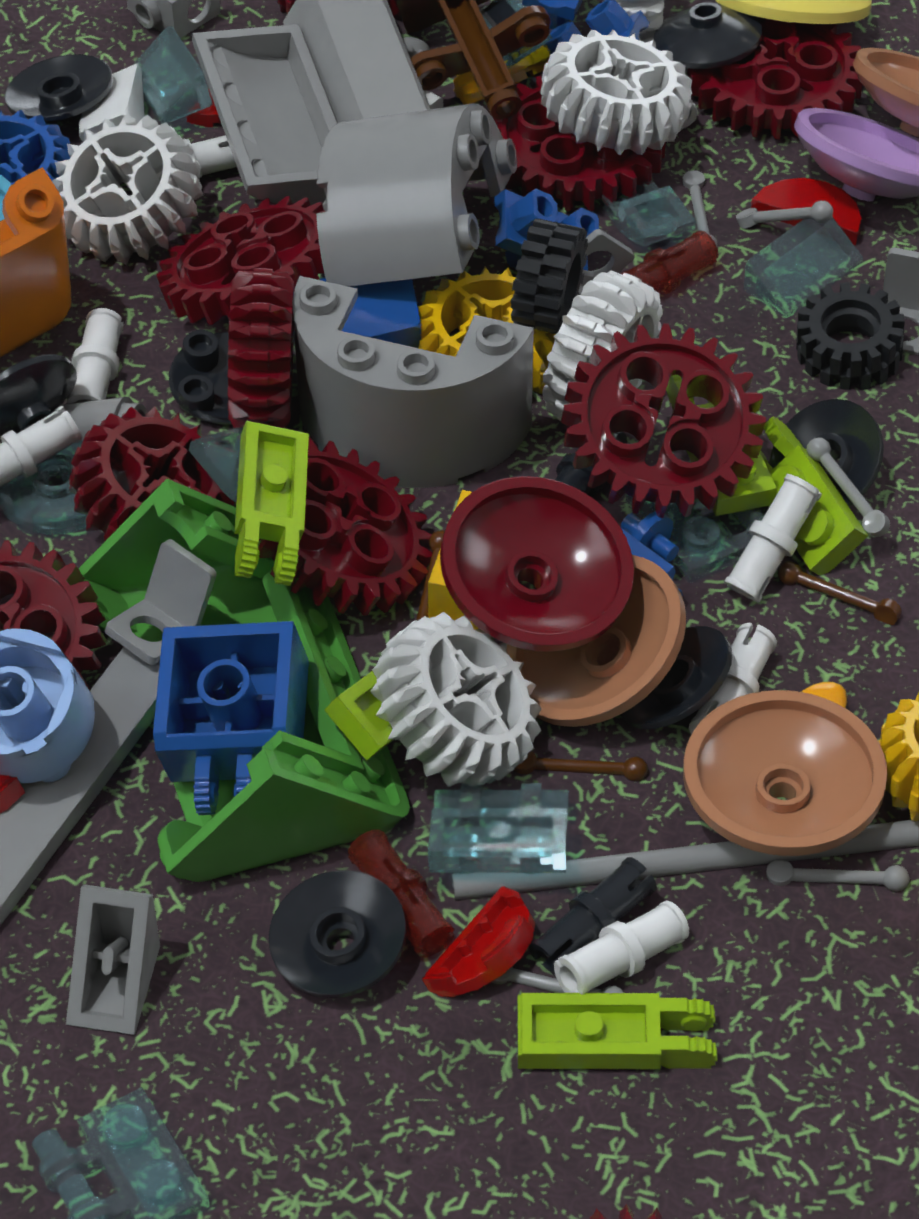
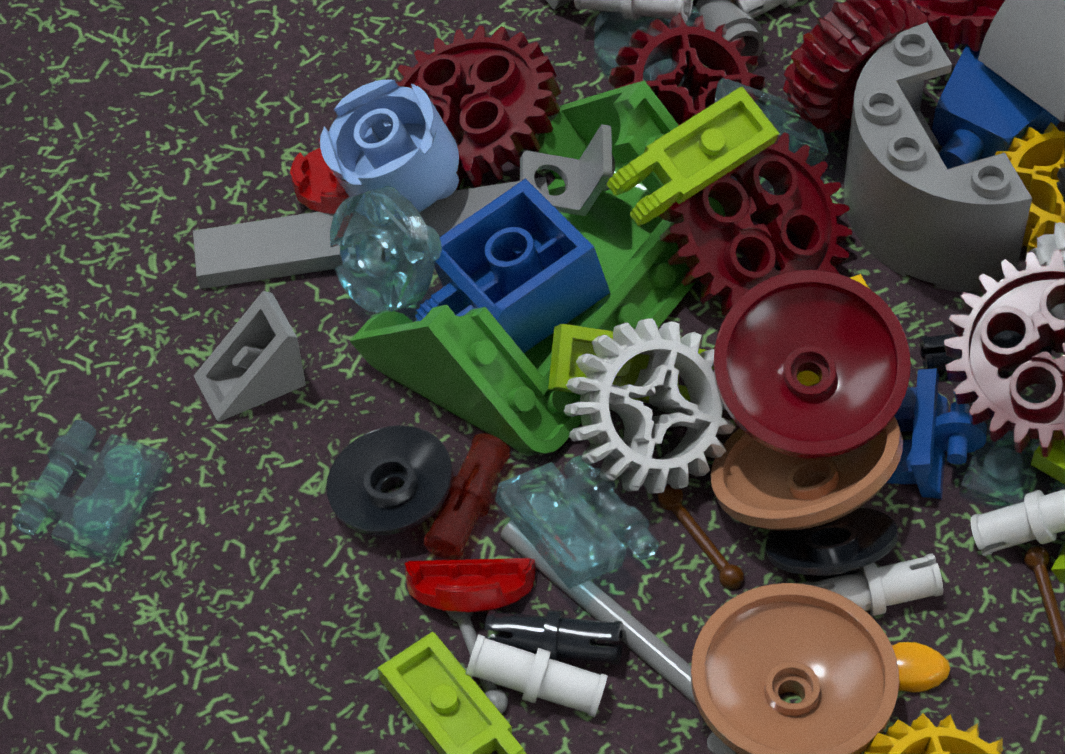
camera: 55 degrees right, 5 degrees up
(109, 744) = (408, 247): none -> clear light blue plate

